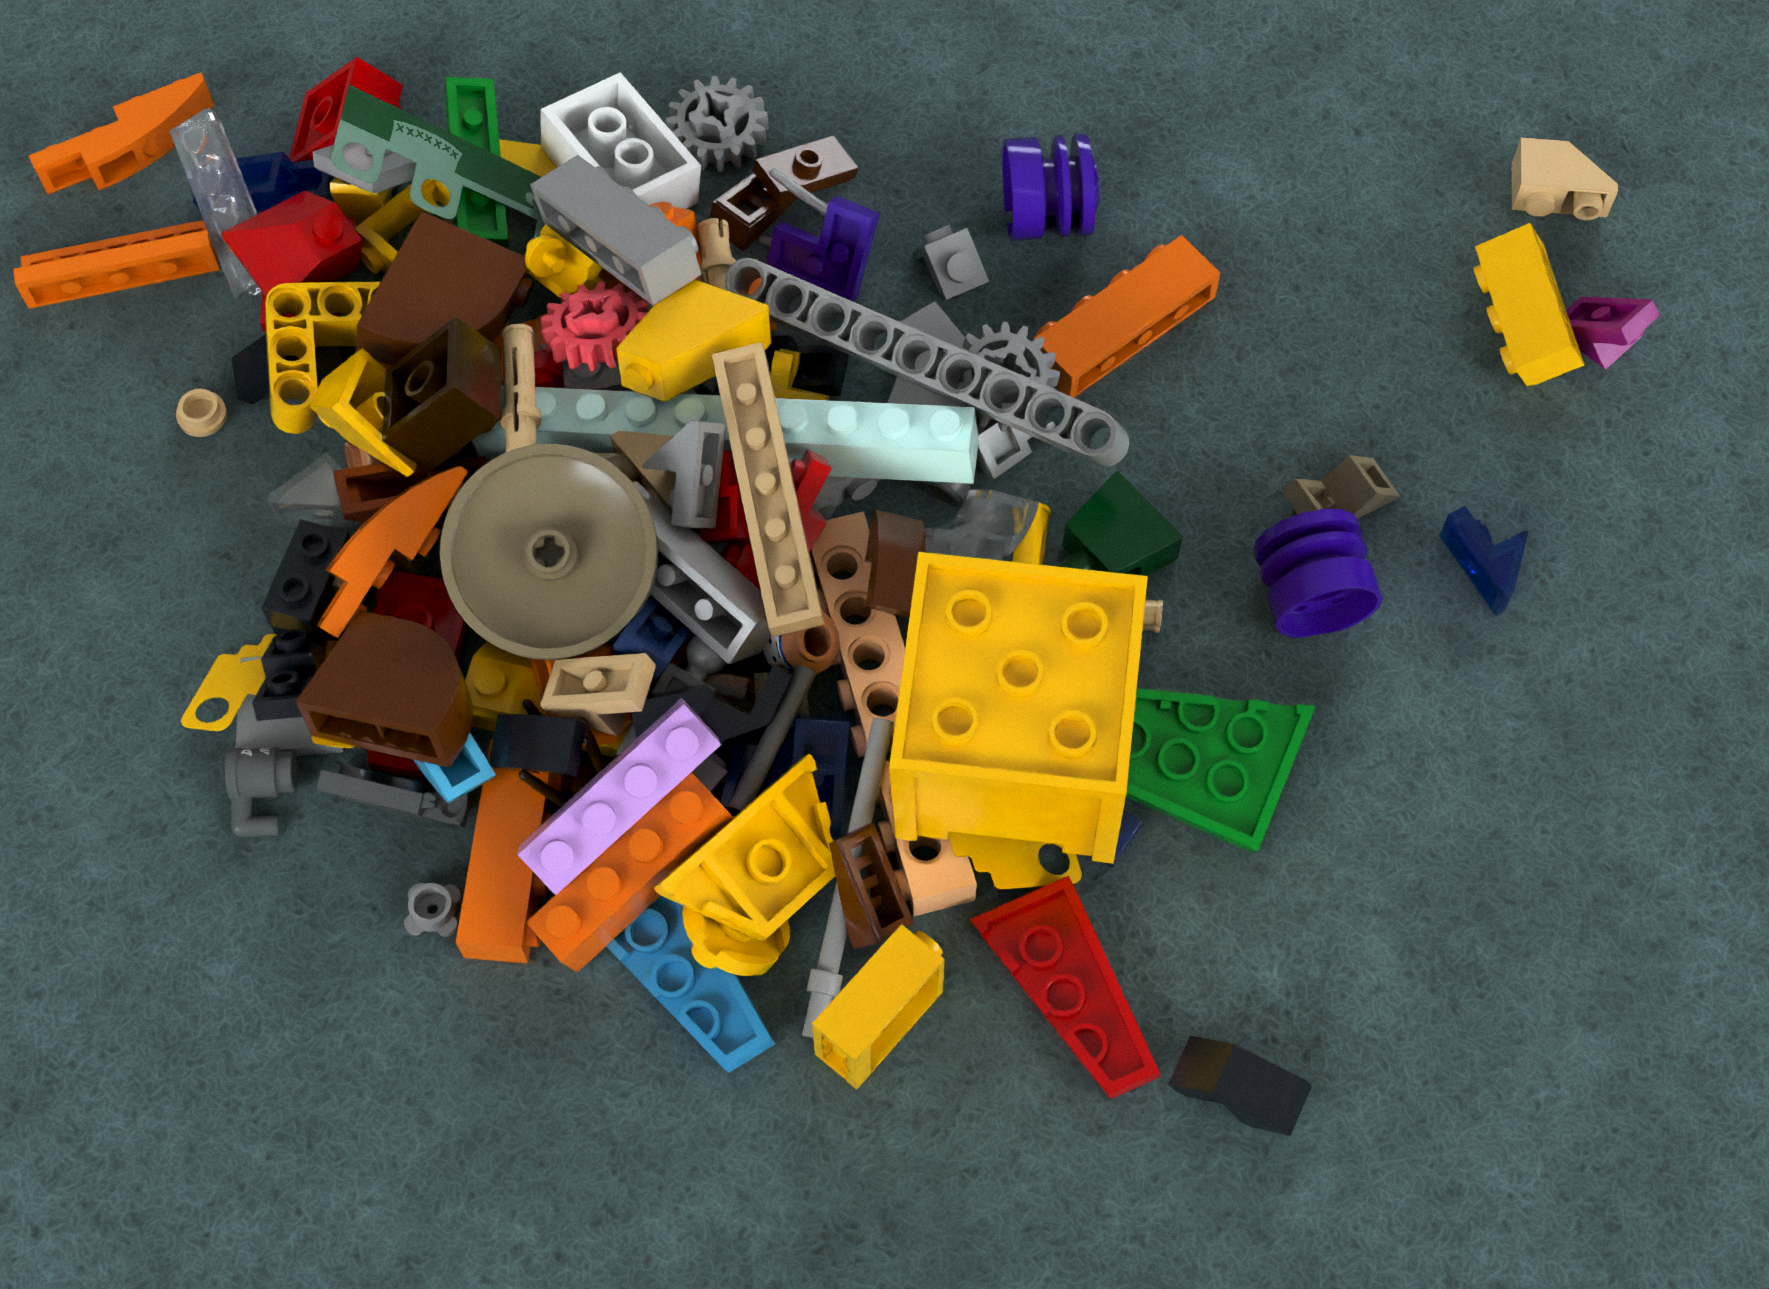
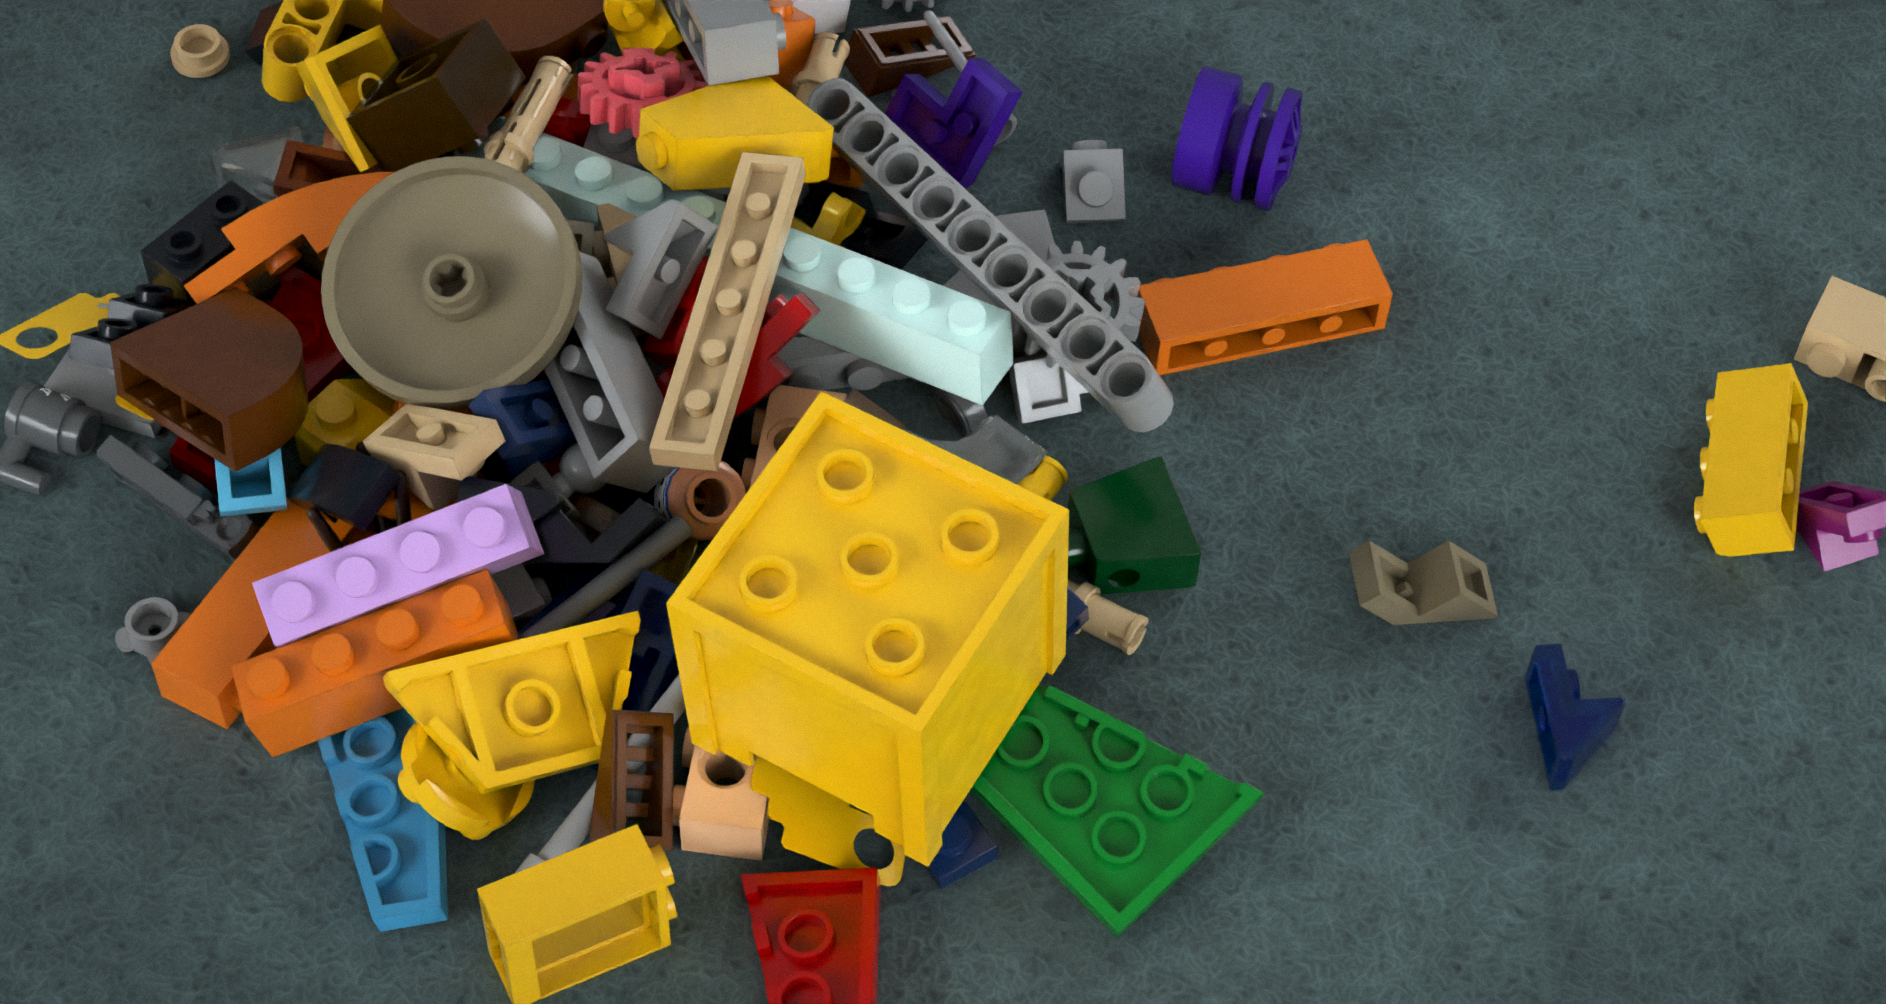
camera: 20 degrees right, 10 degrees down
(809, 165) = (982, 33): plate -> none
(1317, 573) = (1341, 650): dark purple wheel -> none

